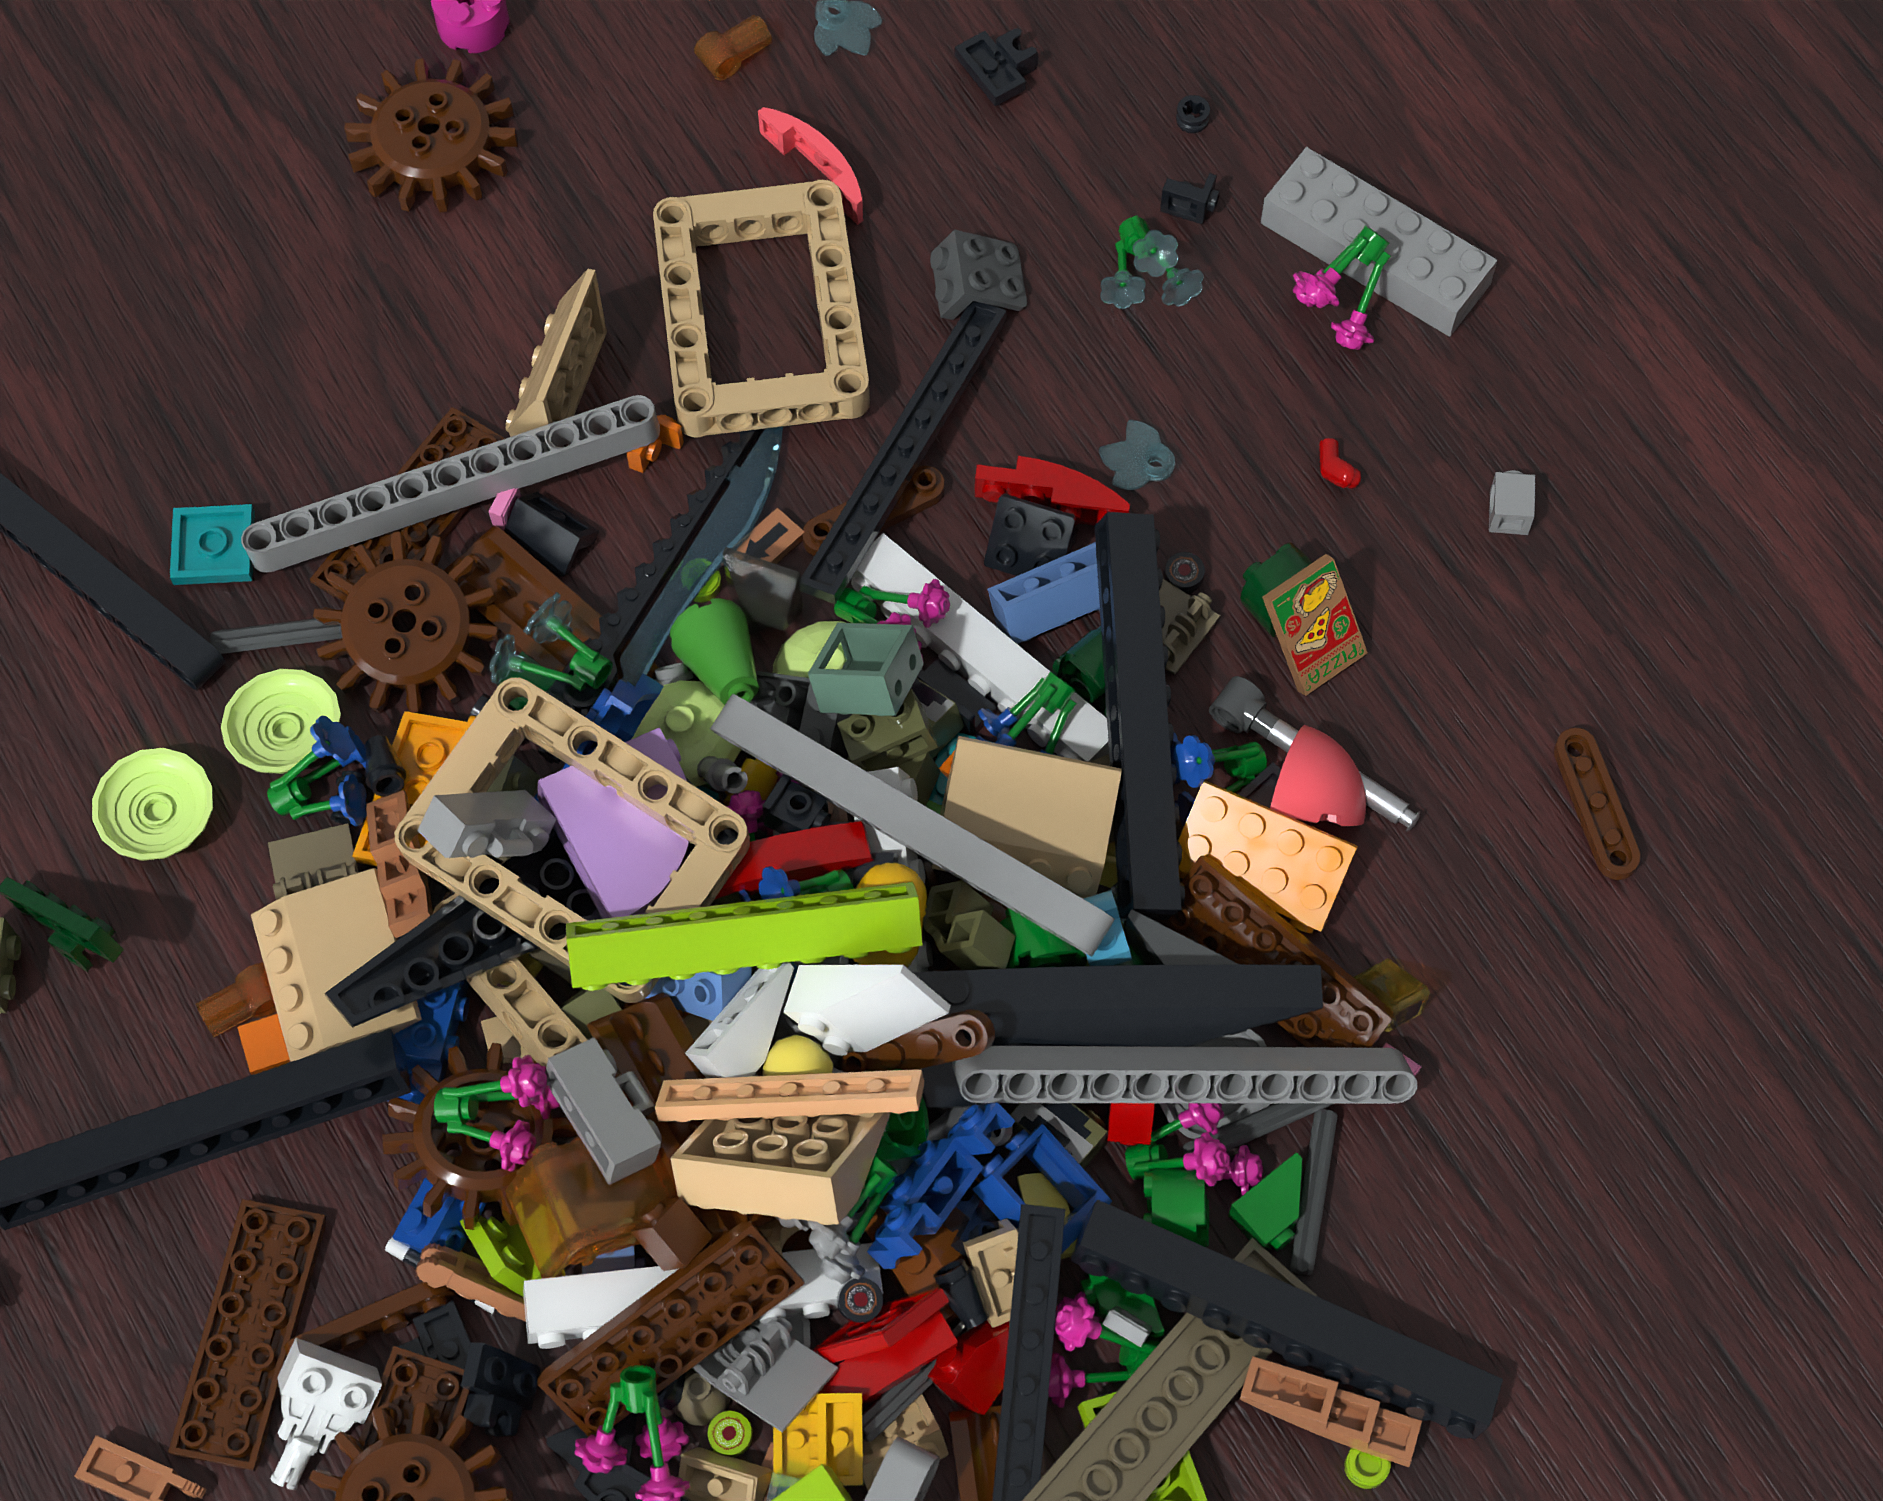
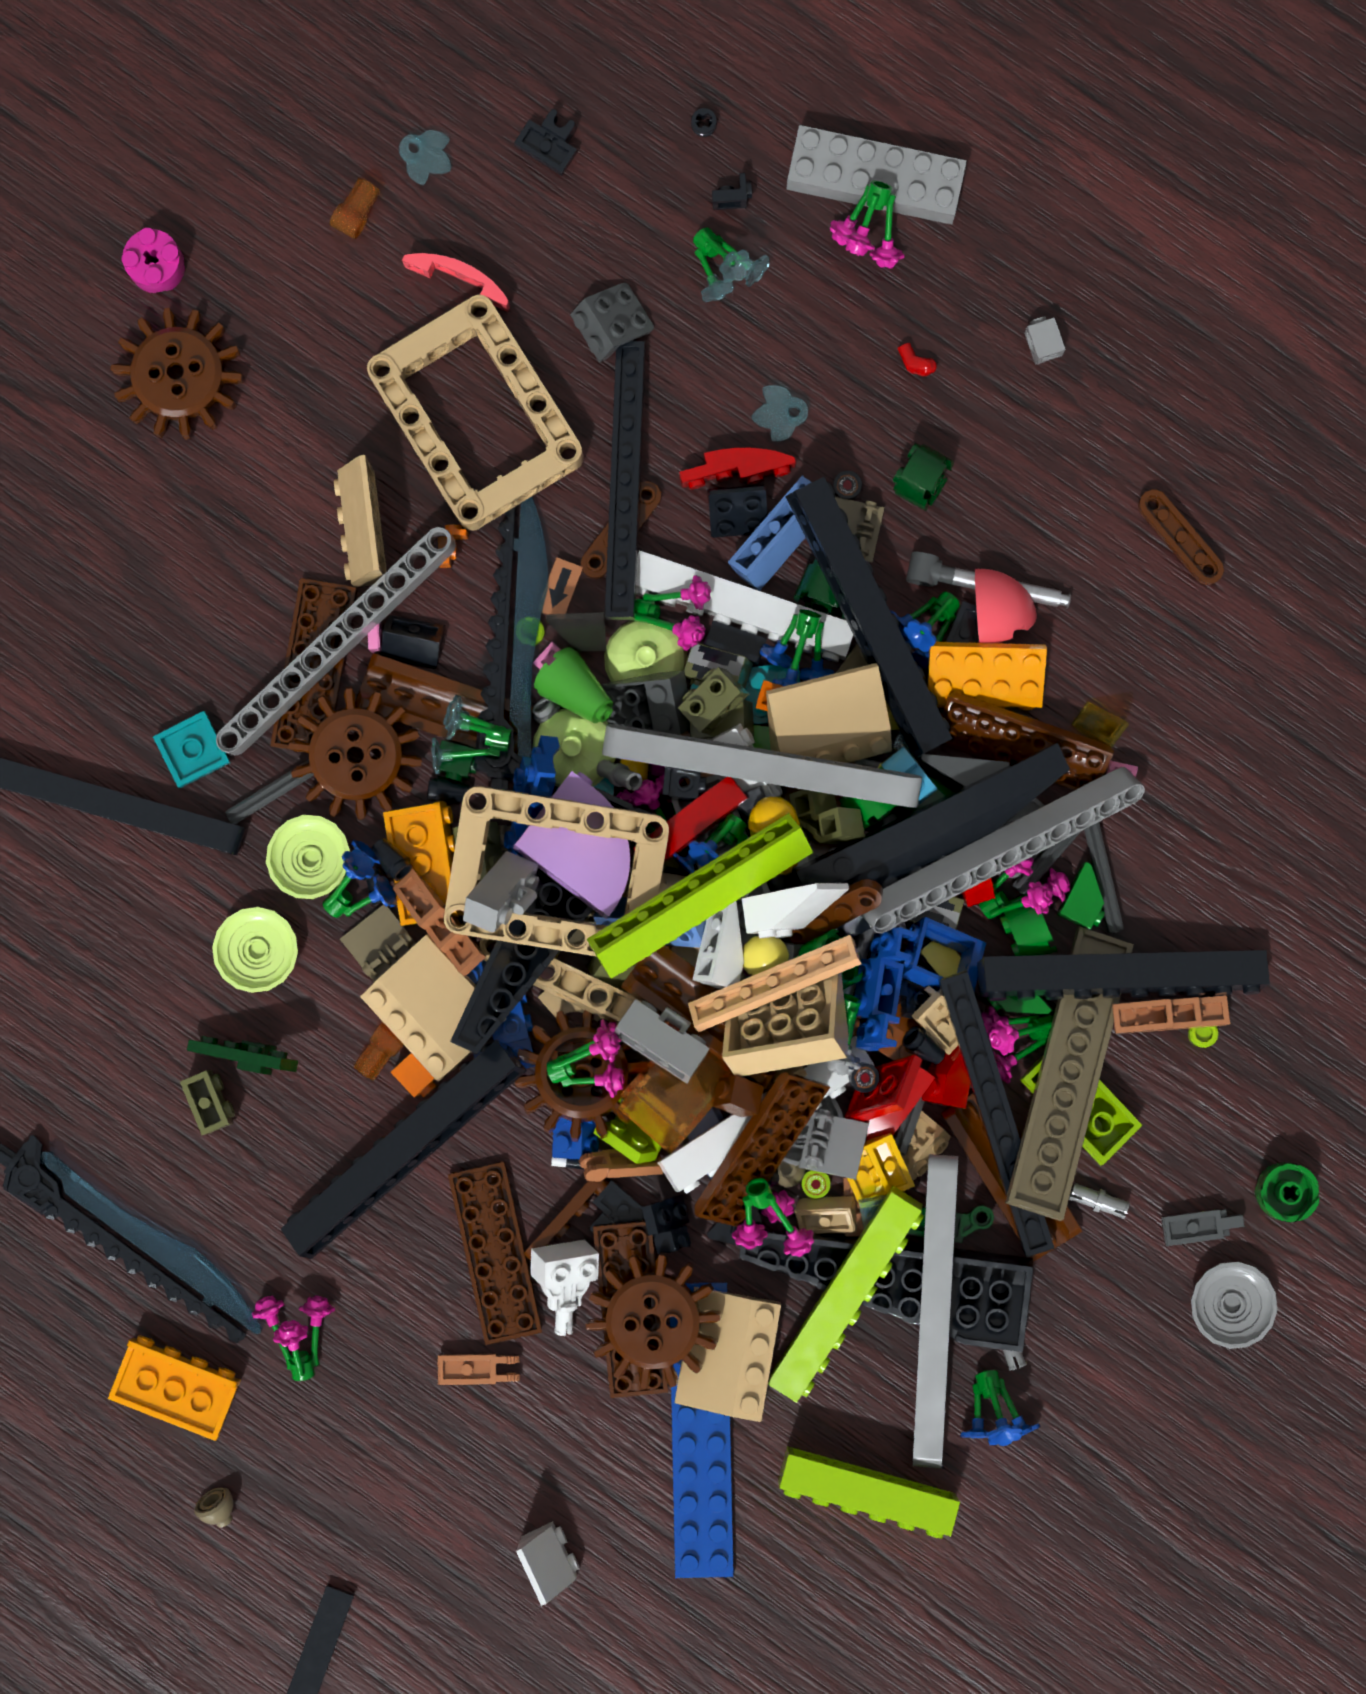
camera: 20 degrees left, 20 degrees up
(876, 673) = (688, 670): sand green piece -> none
(1127, 1325) = (1031, 1020): light grey tile -> none
(1315, 624) = (954, 495): tile -> none

